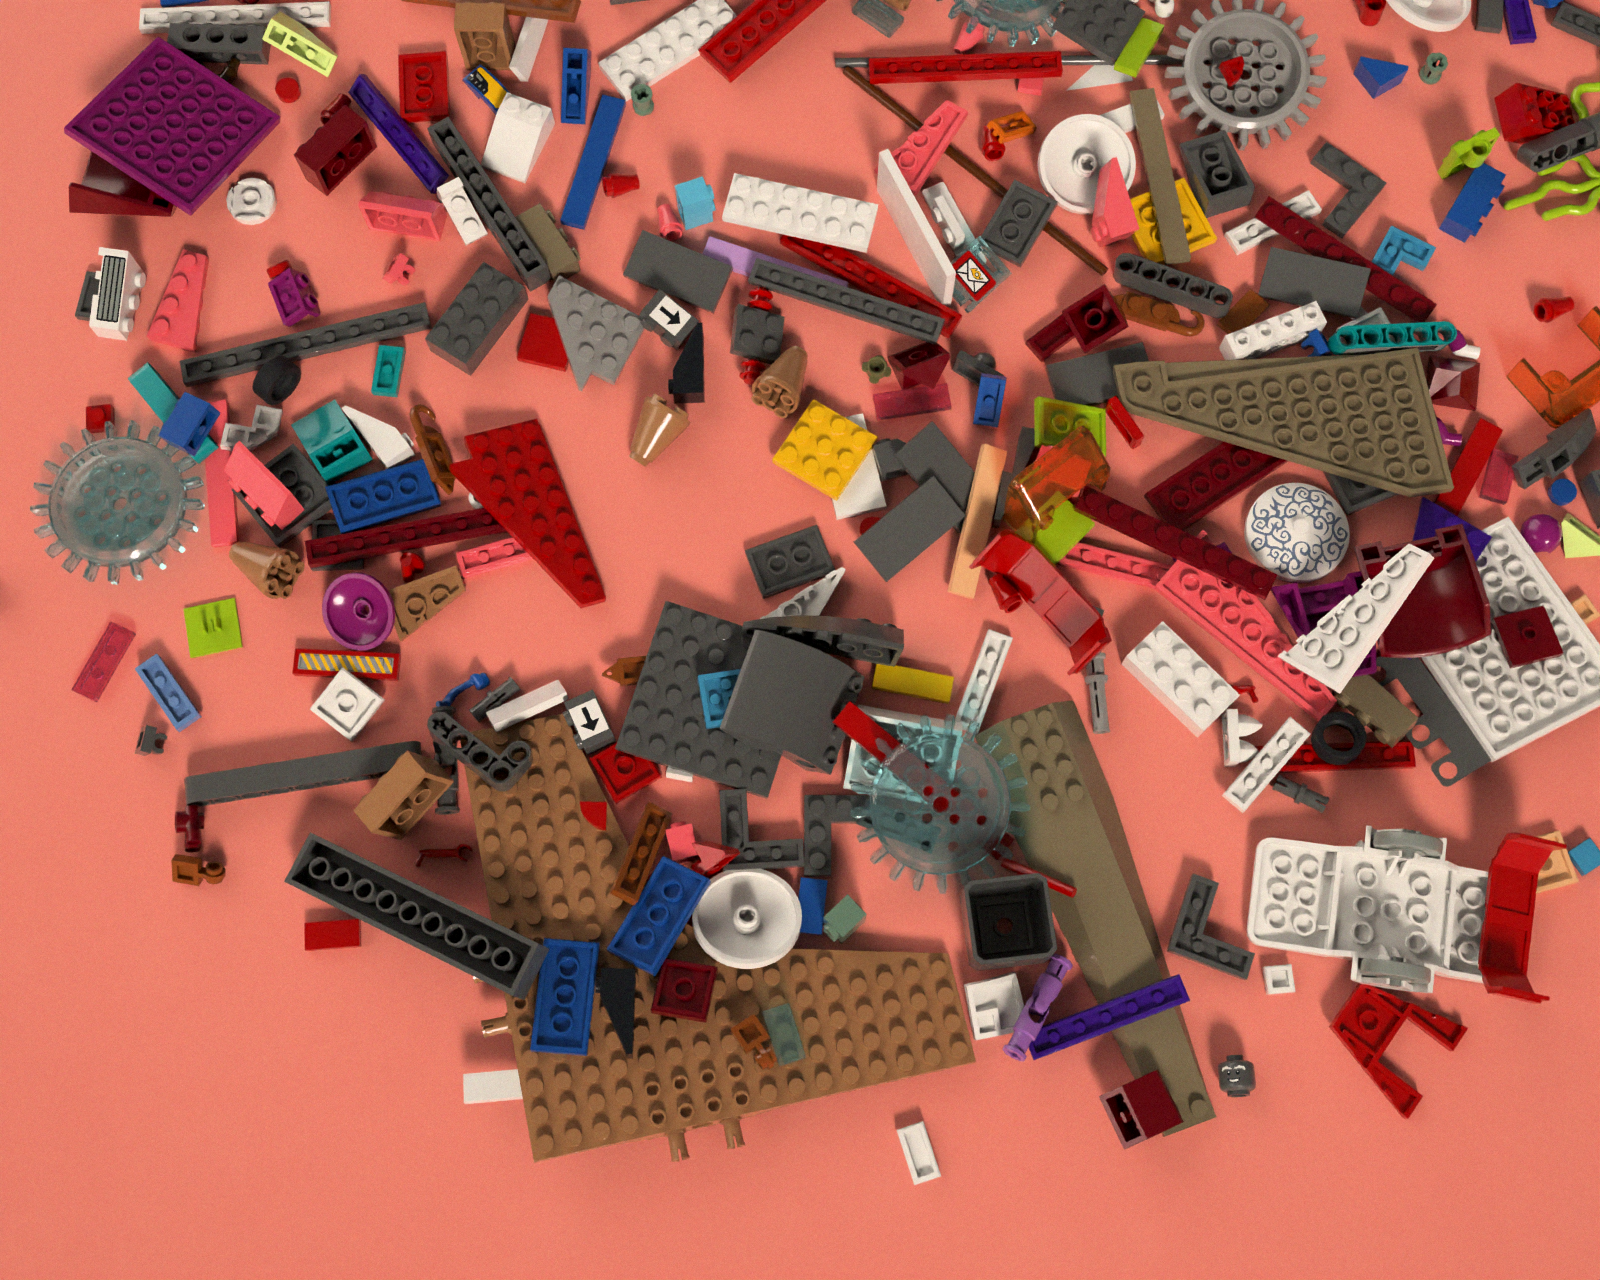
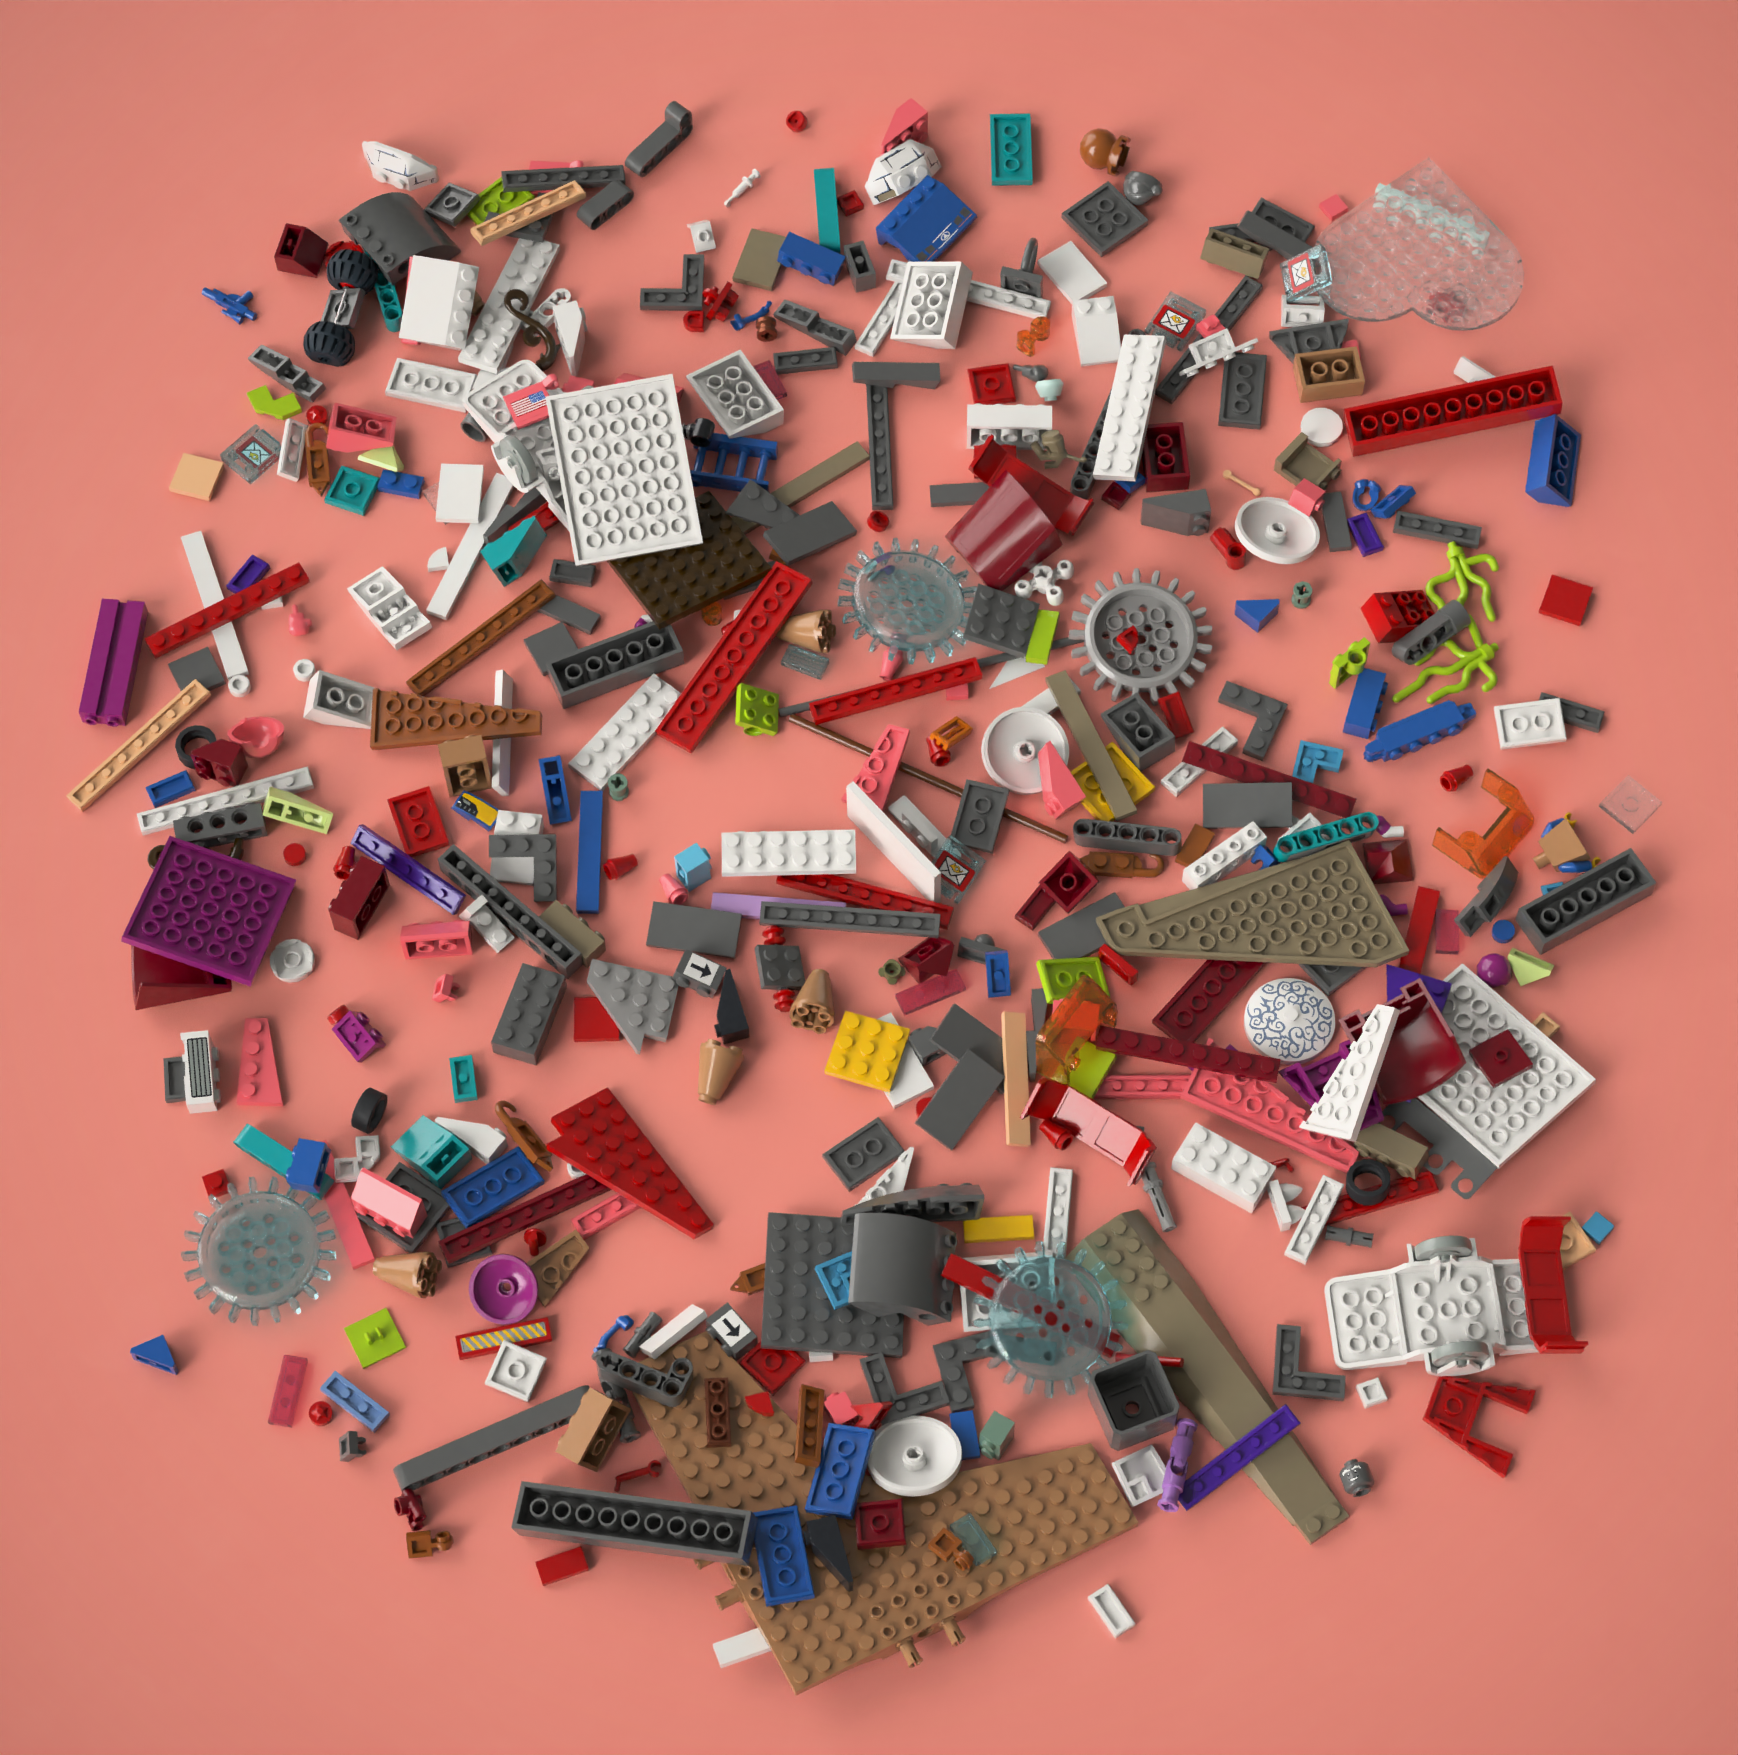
camera: 15 degrees left, 10 degrees down
(130, 696) = (320, 1413): none -> red tile
(306, 344) = (382, 1073): dark grey plate -> none
(541, 148) = (542, 848): none -> dark grey plate
(541, 825) = (717, 1423): none -> copper tile
(811, 53) = (756, 710): none -> lime plate
(1141, 1109) = (1284, 1522): dark red slope -> none
(1261, 165) = (1176, 715): none -> red tile
(1525, 246) = (1418, 731): none -> blue hinge

